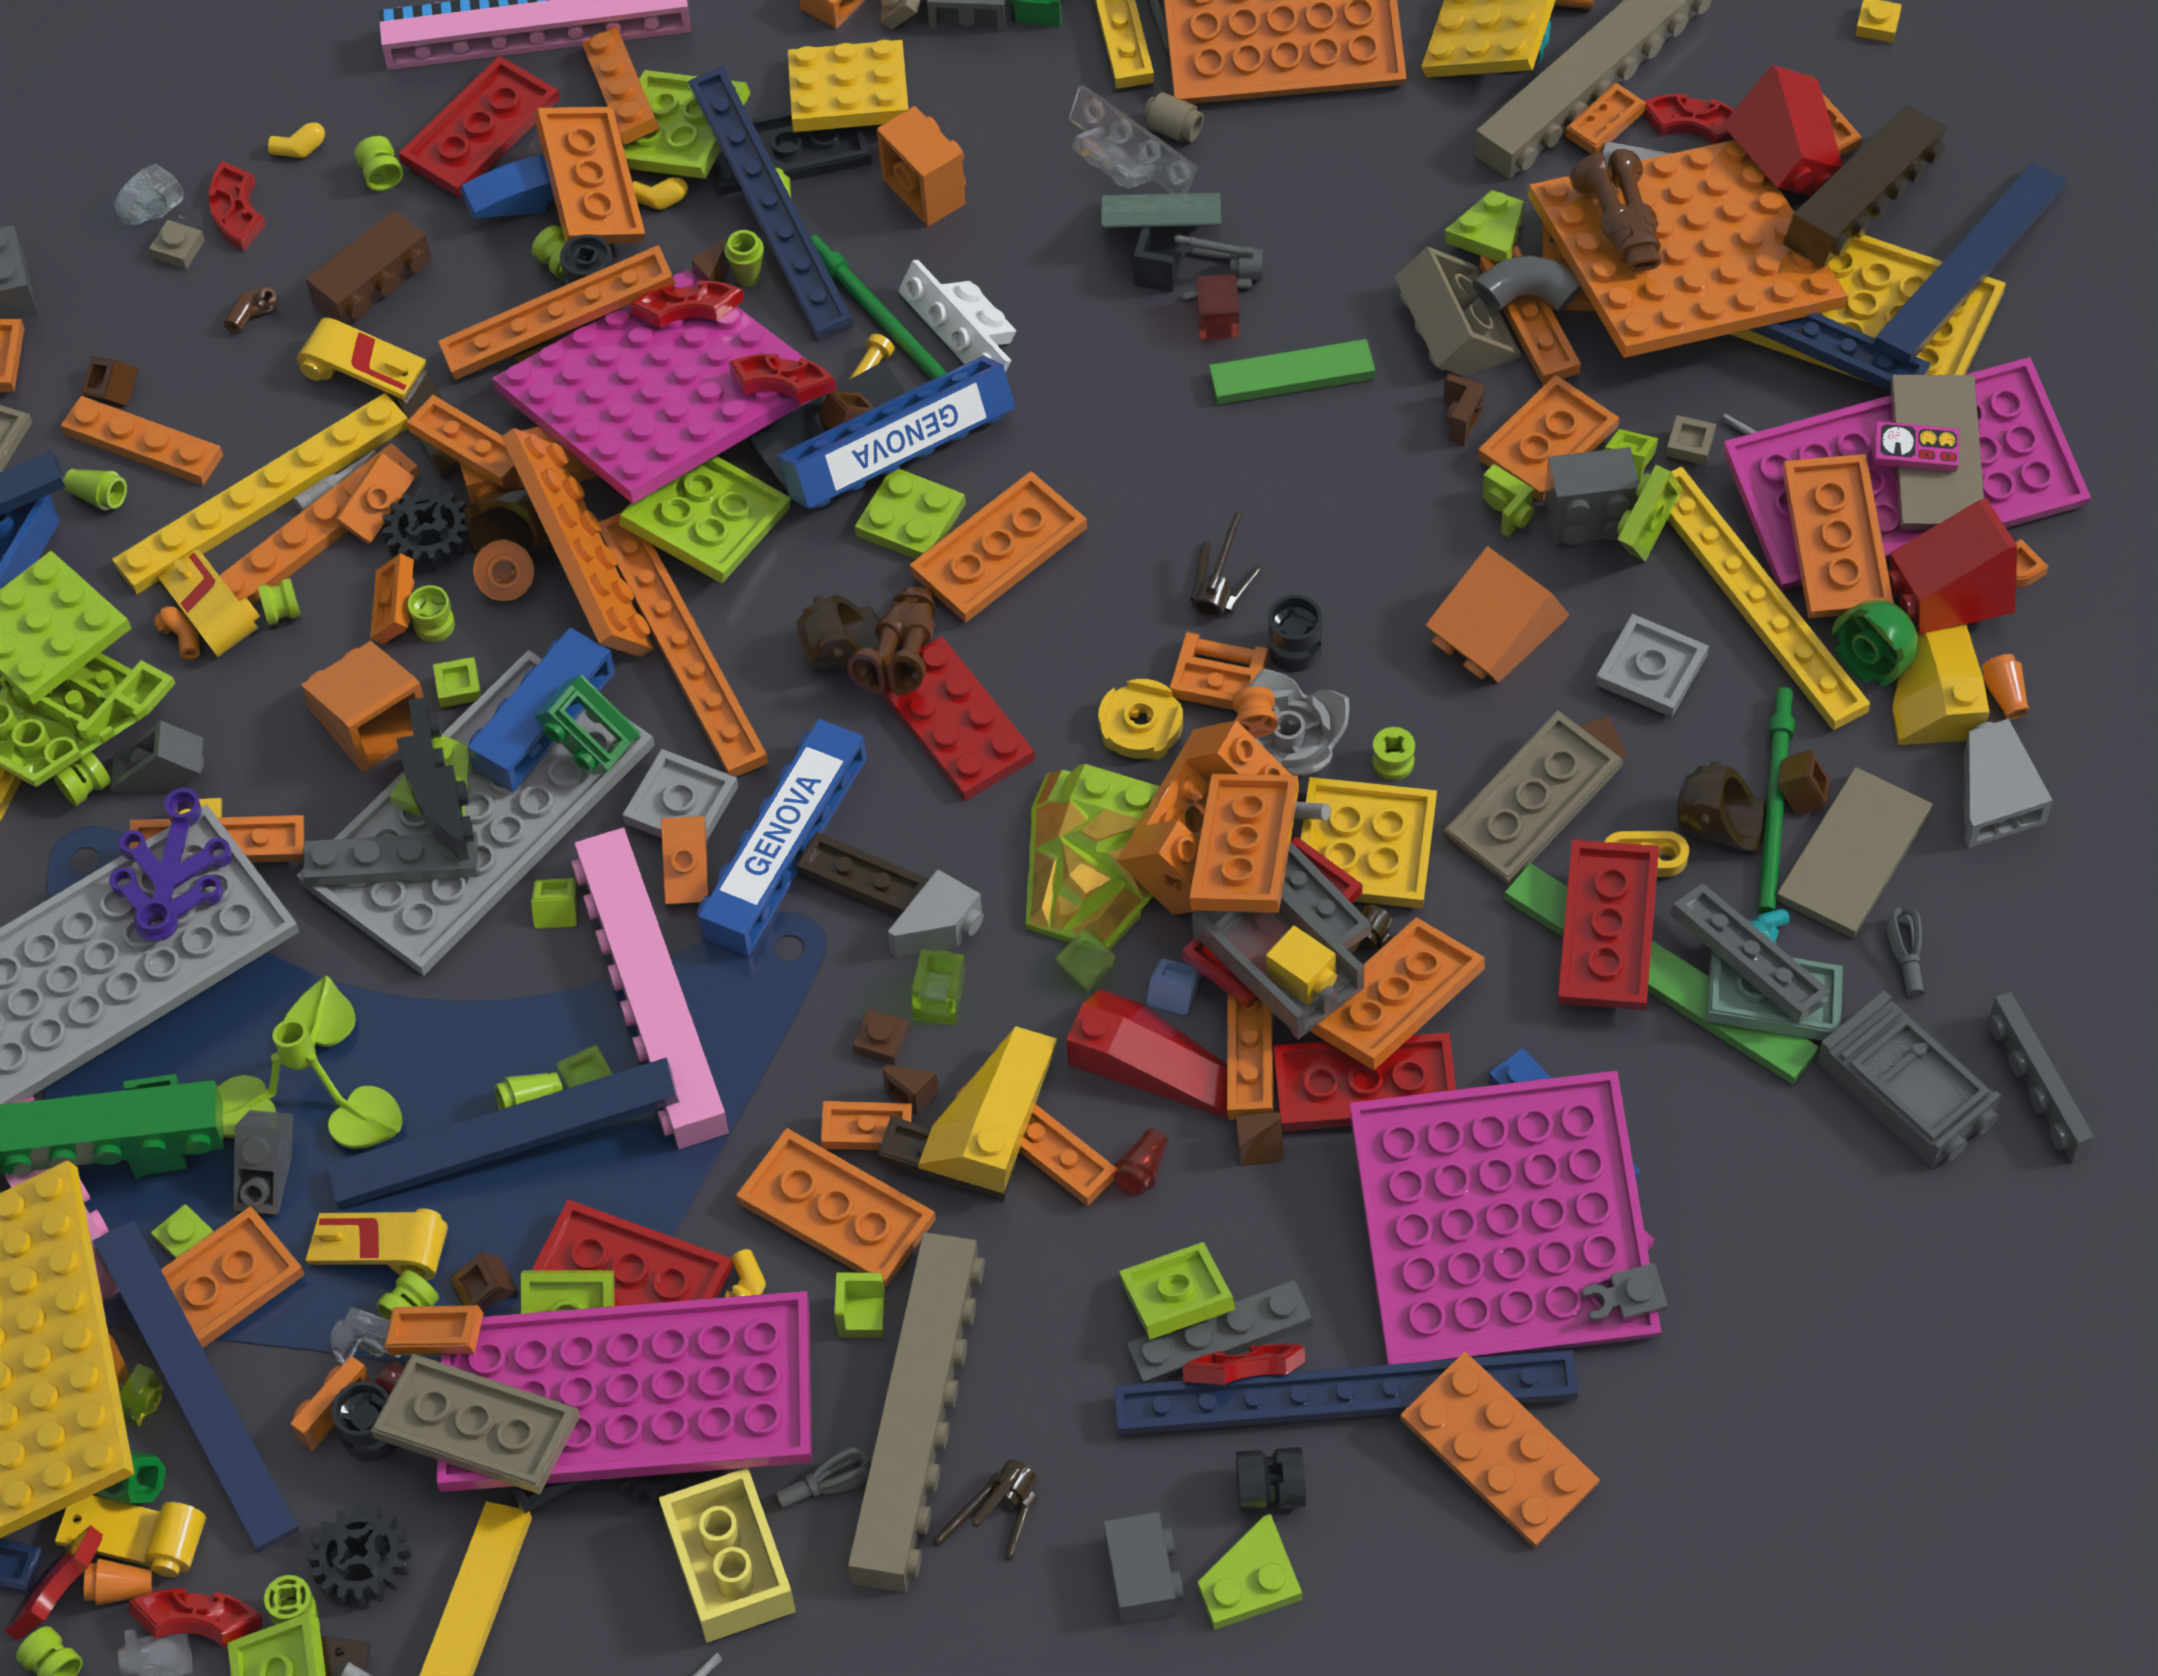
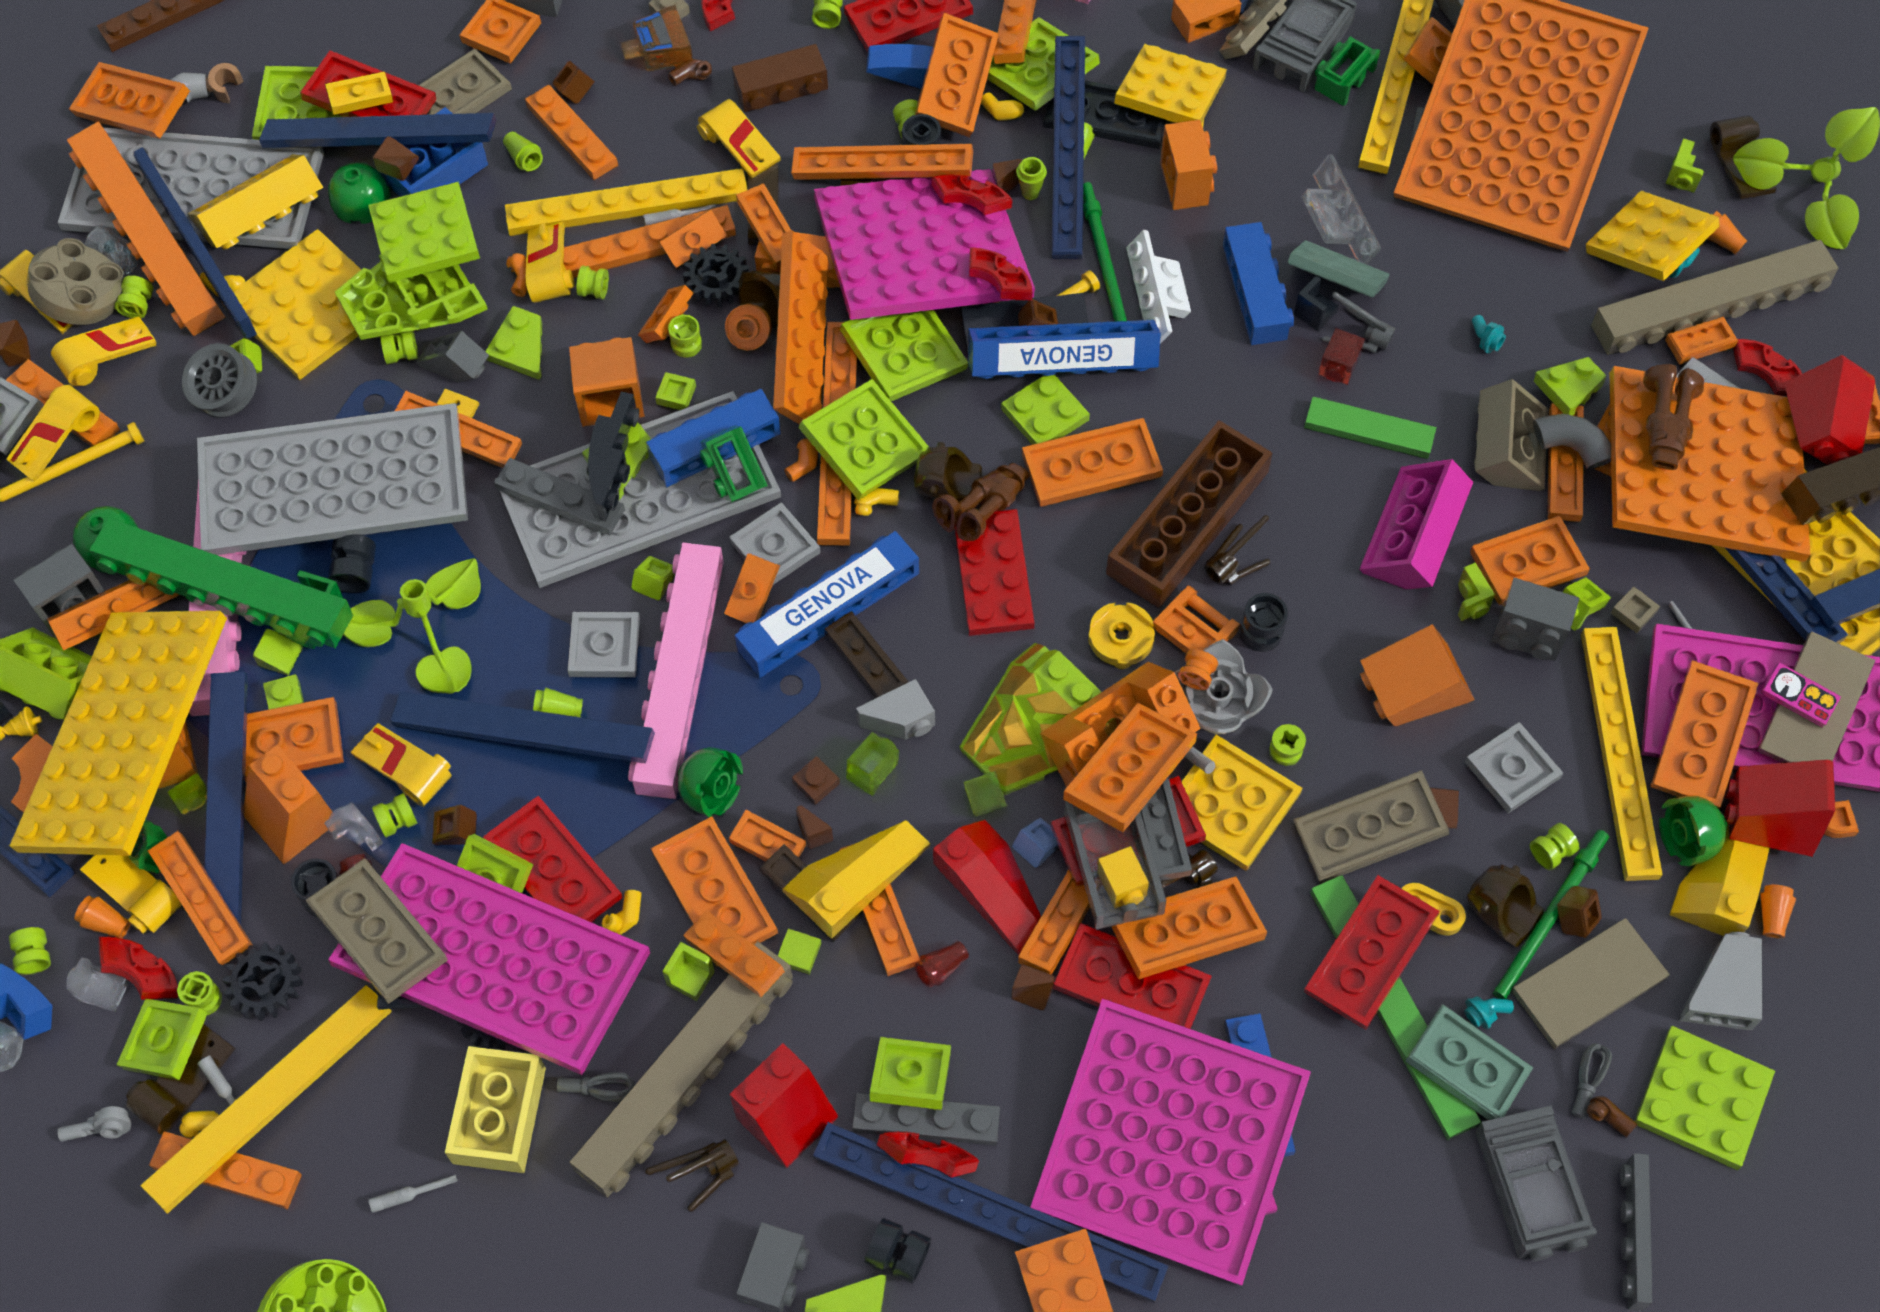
camera: 25 degrees right, 5 degrees up
(54, 1583) = (62, 898): red tile -> none
(146, 1191) = (276, 652): none -> lime slope
(170, 873) = (403, 439): dark purple plant -> none
(180, 1045) = (352, 563): none -> black wheel
(192, 287) = (659, 40): none -> clear orange torso
(227, 711) = (518, 343): none -> lime wing
(230, 1497) = (200, 898): none -> orange plate
(262, 1160) = (359, 667): dark grey slope -> none
(270, 1345) = (283, 805): none -> orange slope
(314, 1416) = (284, 866): orange plate -> none
(434, 1330) = (390, 847): orange tile -> none
(543, 1000) = (604, 644): none -> light grey plate
(583, 1067) = (603, 707): clear neon green plate -> none
(661, 689) = (806, 461): none -> orange arm
(721, 633) = (864, 438): none -> lime plate
(759, 1089) = (709, 780): none -> green cylinder
(768, 694) = (878, 496): none -> yellow arm
(906, 1256) = (734, 953): none -> orange plate
(974, 1223) = (799, 950): none -> lime tile
(1056, 1389) = (783, 1105): none -> red slope
(1075, 266) = (1257, 283): none -> blue brick
(1144, 553) = (1188, 514): none -> reddish brown brick
(1173, 117) = (1385, 205): dark tan brick -> none
(1373, 212) = (1490, 335): none -> teal plate
(1404, 453) = (1417, 524): none -> dark pink slope
(1466, 406) = (1481, 509): reddish brown bracket -> none
(1633, 1291) = (1236, 1245): dark grey plate -> none
(1643, 524) = (1574, 650): lime plate -> none
(1742, 724) = (1554, 846): none -> lime wheel
(1750, 953) = (1464, 1027): dark grey plate -> none
(1941, 972) = (1603, 1109): none -> reddish brown arm
(2035, 912) = (1704, 1097): none -> lime plate

